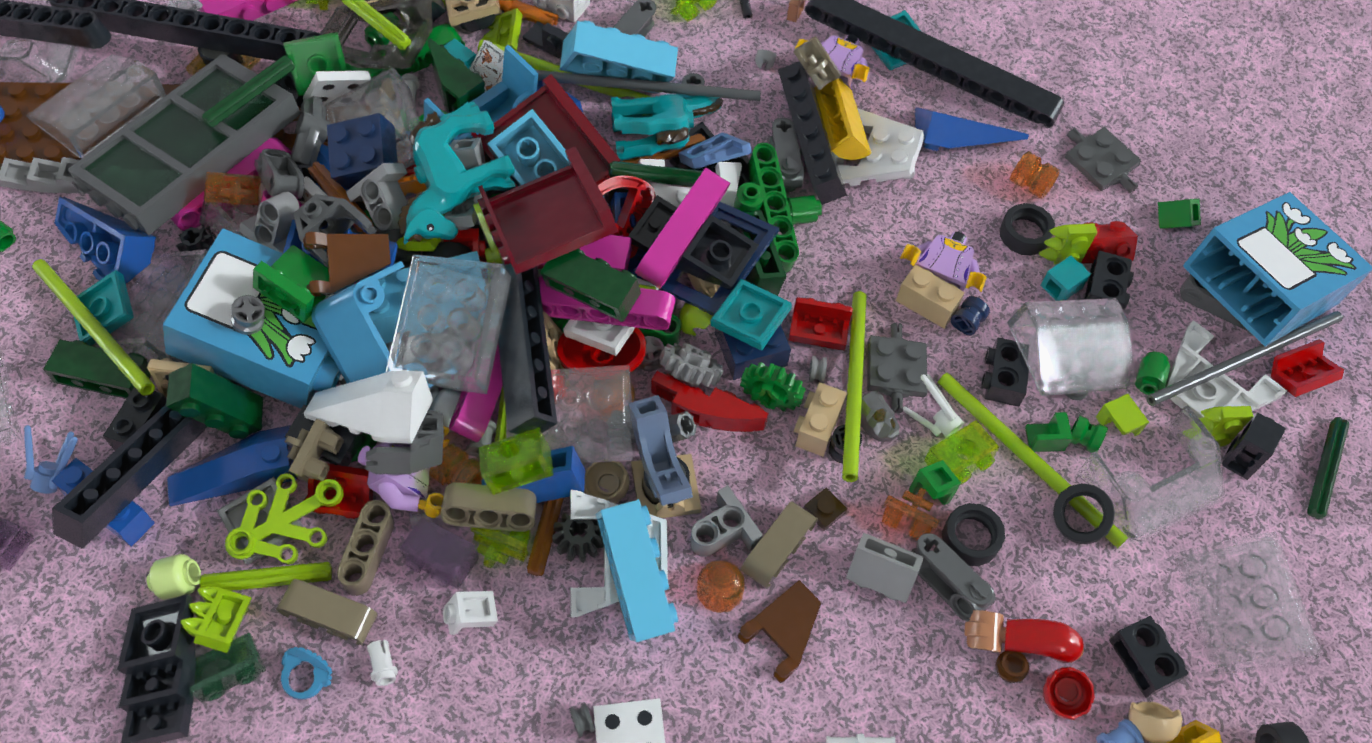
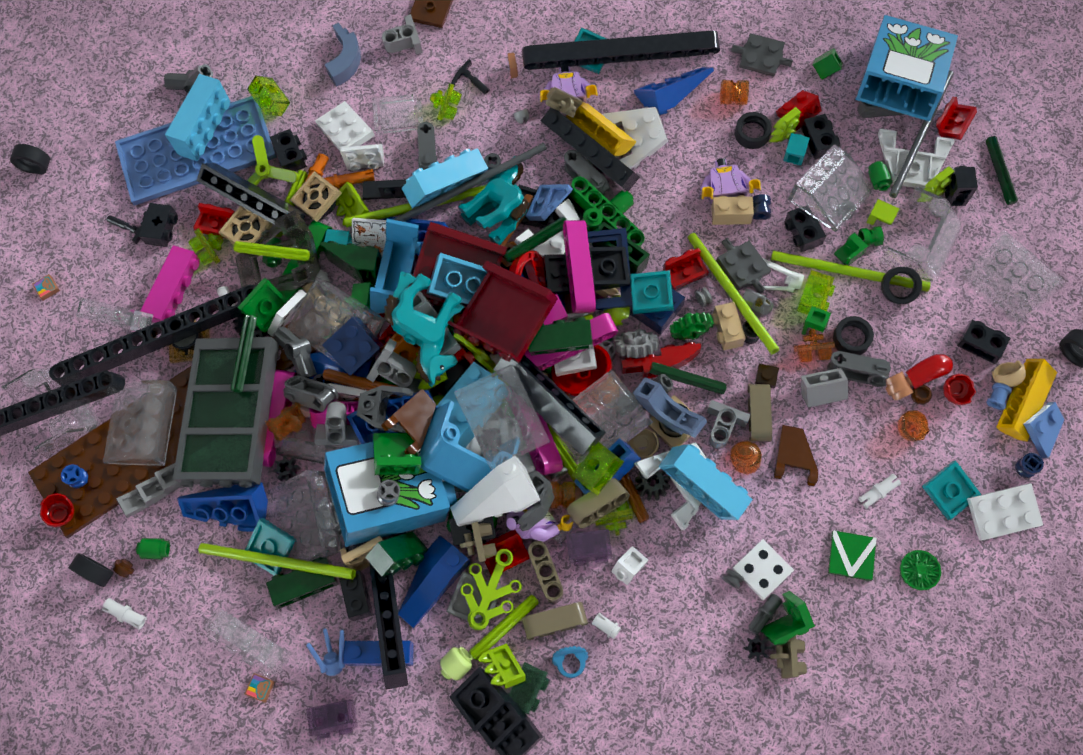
camera: 25 degrees left, 10 degrees up
(722, 444) = (688, 378): none -> dark green axle
(969, 688) = (913, 420): none -> clear orange hair

